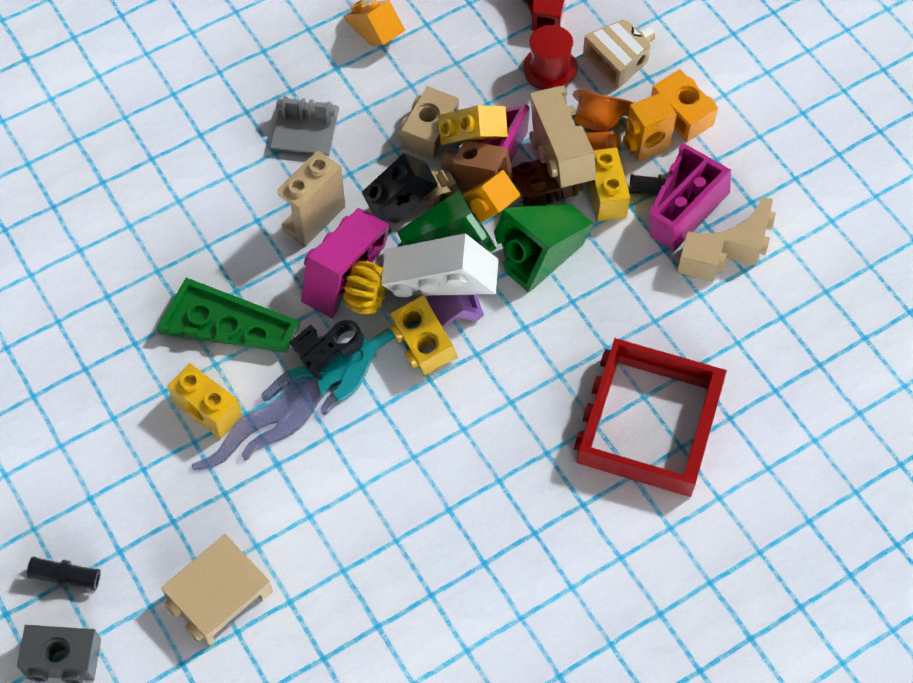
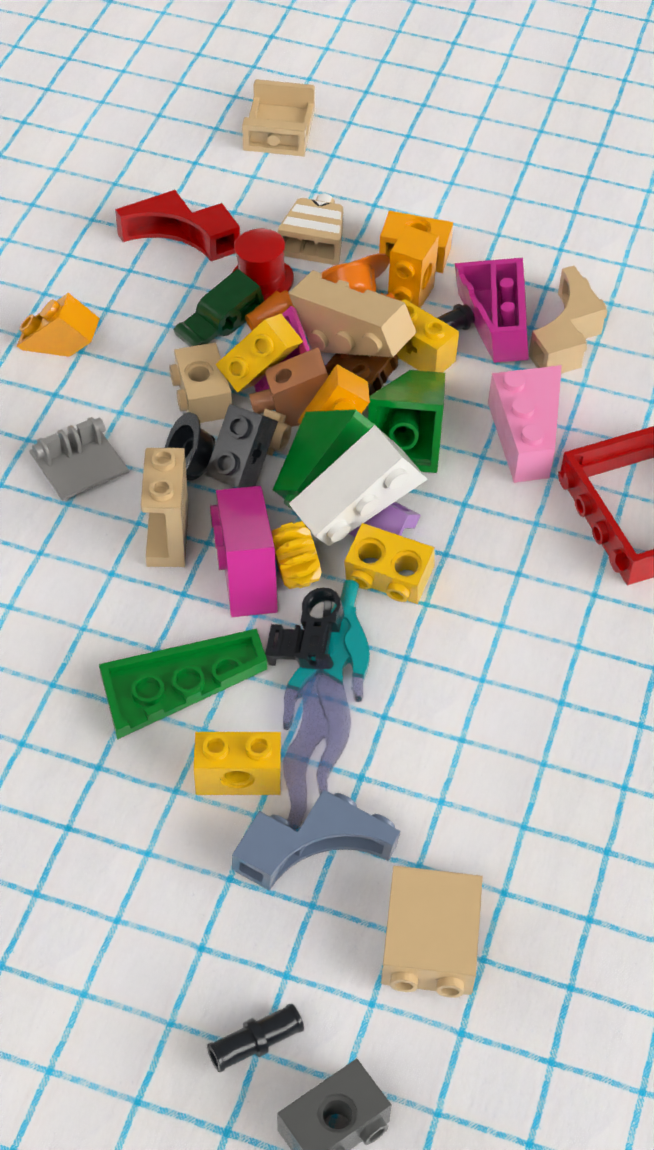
camera: 40 degrees left, 10 degrees down
(172, 469) = (332, 824): none -> sand blue arch
(368, 166) = (197, 444): none -> black piece
(494, 75) = (221, 310): none -> dark green piece
(521, 95) = (272, 306): none -> orange cone
(622, 295) = (526, 419): none -> bright pink wedge

